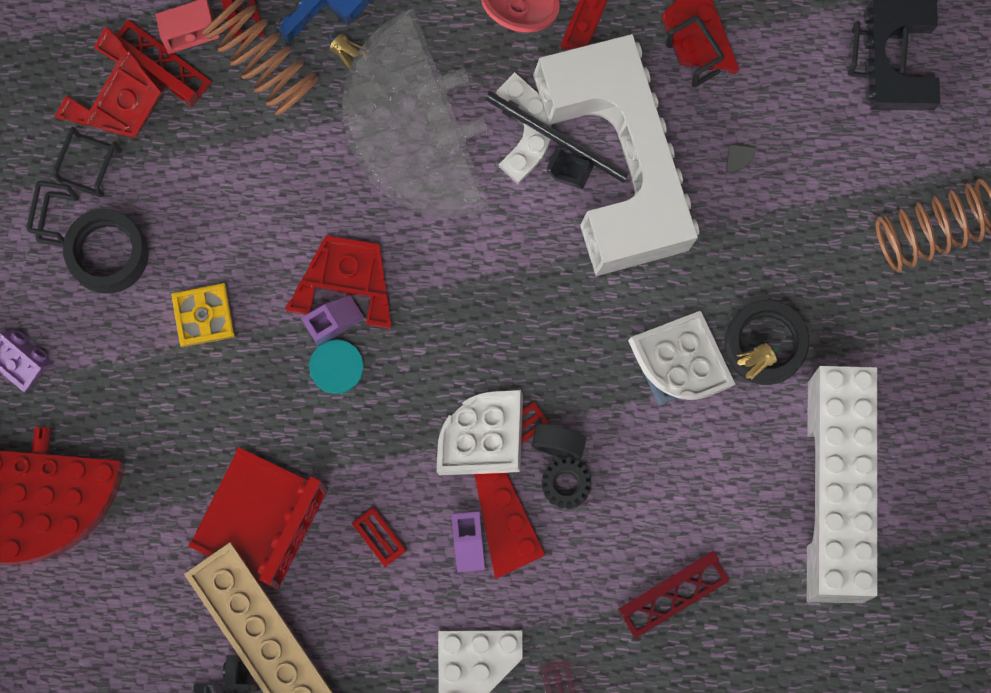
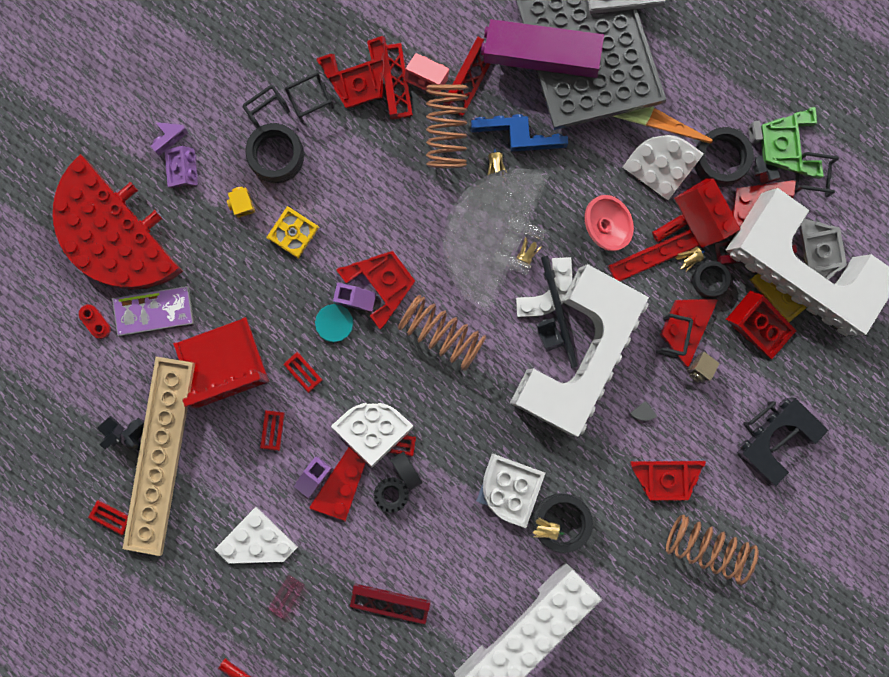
camera: 40 degrees right, 5 degrees up
(80, 605) = (94, 320): none -> red plate
(117, 335) = (240, 202): none -> yellow brick
(133, 535) = (153, 311): none -> medium lavender tile
(352, 458) = (313, 384): none -> red tile
(405, 260) = (467, 360): none -> nougat piece
(469, 111) = (527, 257): none -> pearl gold piece
(754, 57) = (703, 368): none -> dark tan slope
(827, 200) = (667, 478): none -> red wing

